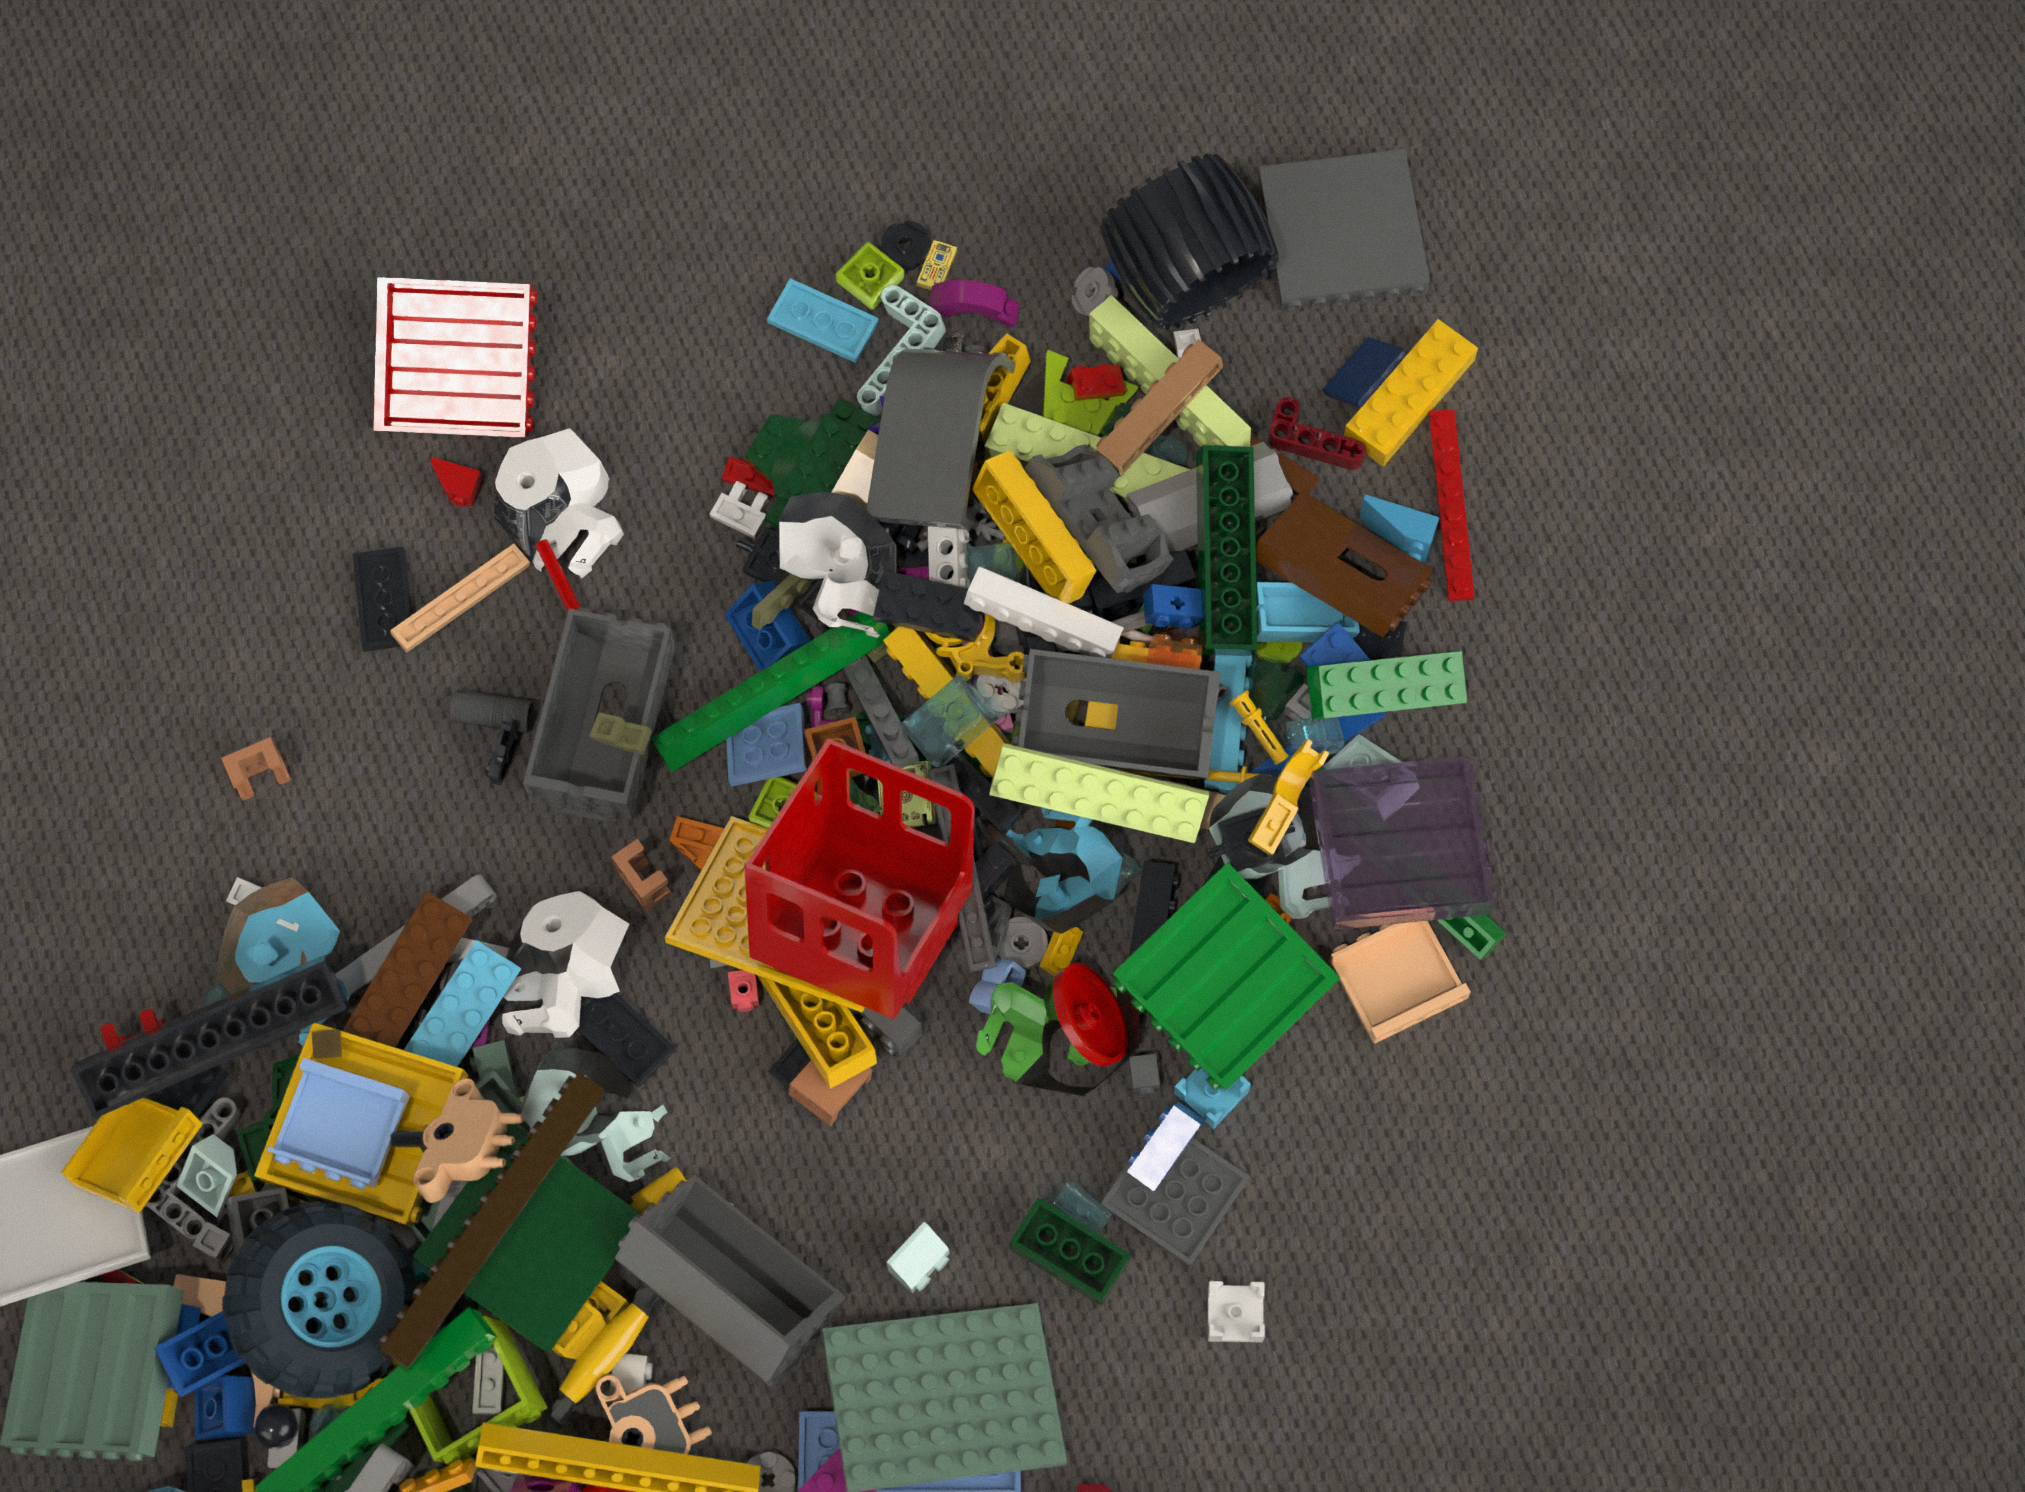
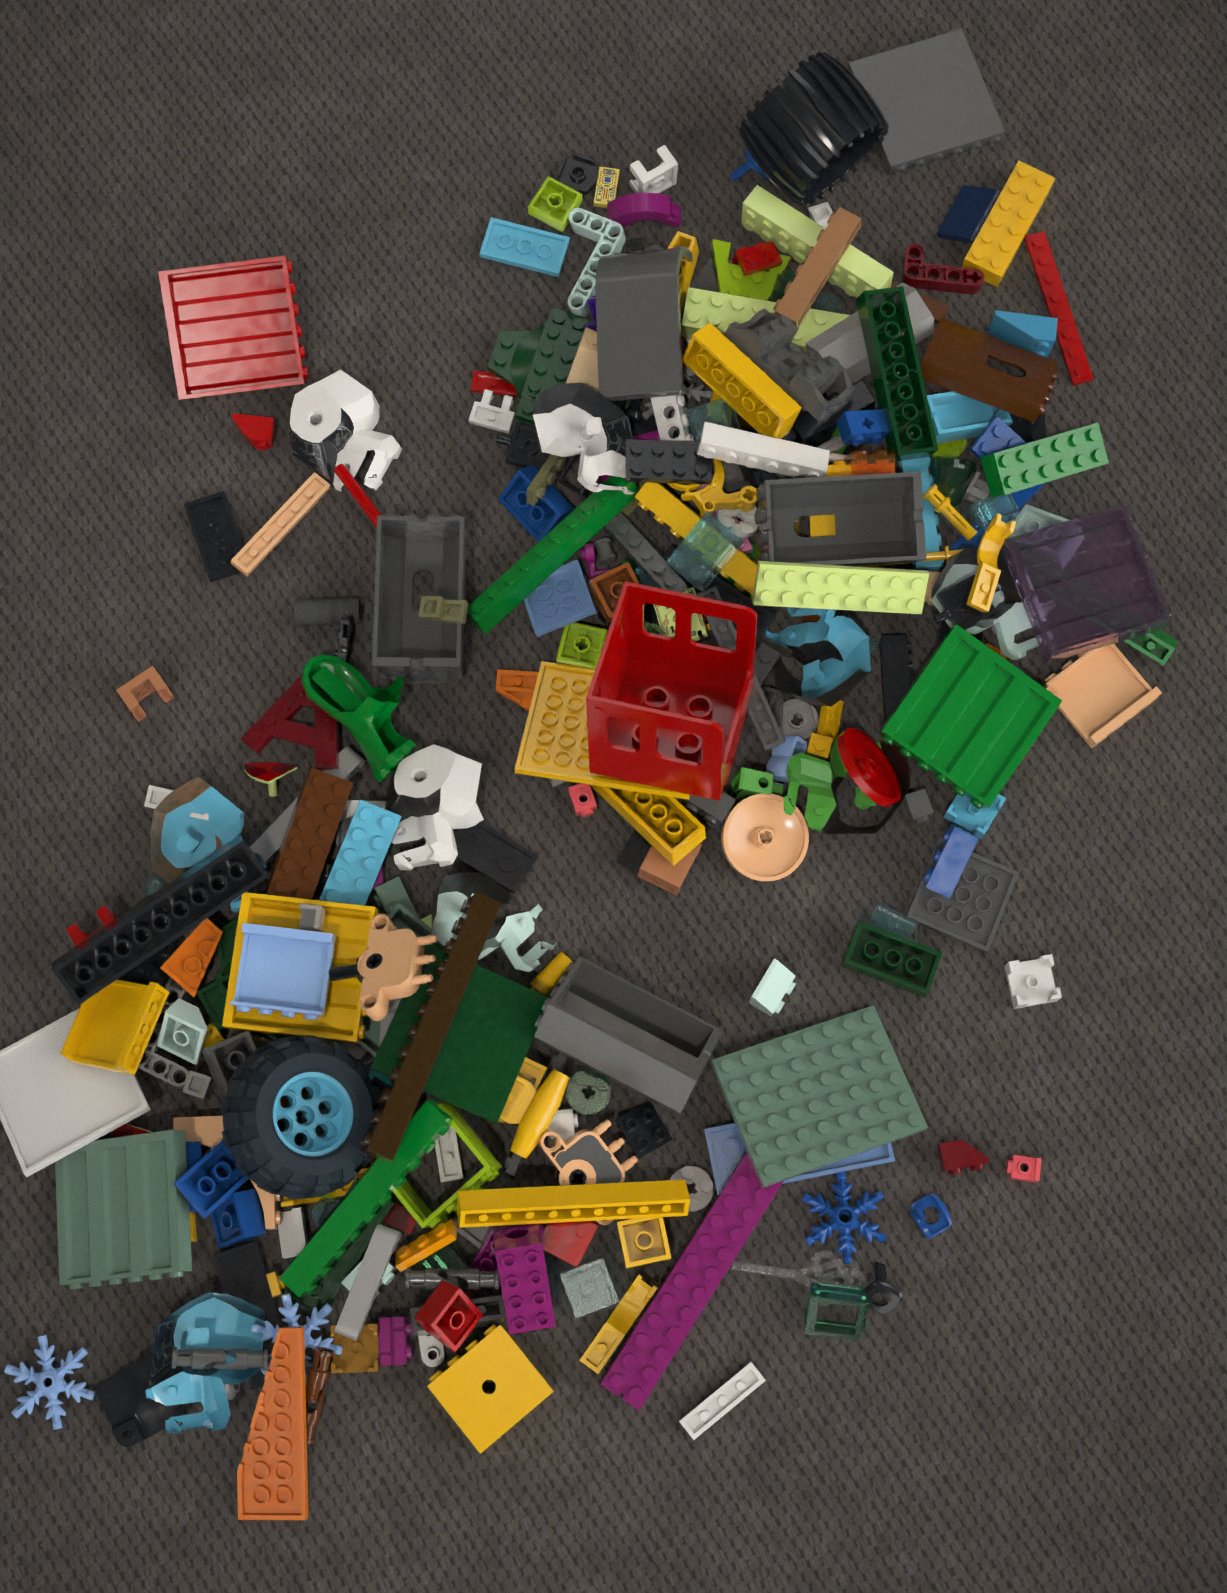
camera: 15 degrees left, 5 degrees up
(240, 1089) = (192, 957): none -> orange wing
(276, 1426) = (284, 1225): black hair -> none
(326, 1044) = (258, 907): clear smoke tile -> none
(379, 889) = (268, 773): none -> shield
(386, 1067) = (312, 917): none -> light grey panel
(403, 834) = (277, 724): none -> dark red plate
(414, 1448) = (400, 1219): none -> red tile
(504, 834) = (361, 709): none -> green animal
(628, 865) = (467, 719): nougat panel -> none
(676, 1356) = (581, 1082): none -> clear green brick
(727, 1398) = (643, 1130): none -> black hinge
(941, 1012) = (752, 782): none -> bright green torso
(947, 1078) = (763, 839): none -> light nougat dish
(997, 267) = (658, 178): none -> white panel
(1038, 979) = (819, 746): none -> yellow brick
(1092, 278) = (732, 176): light grey plate -> none

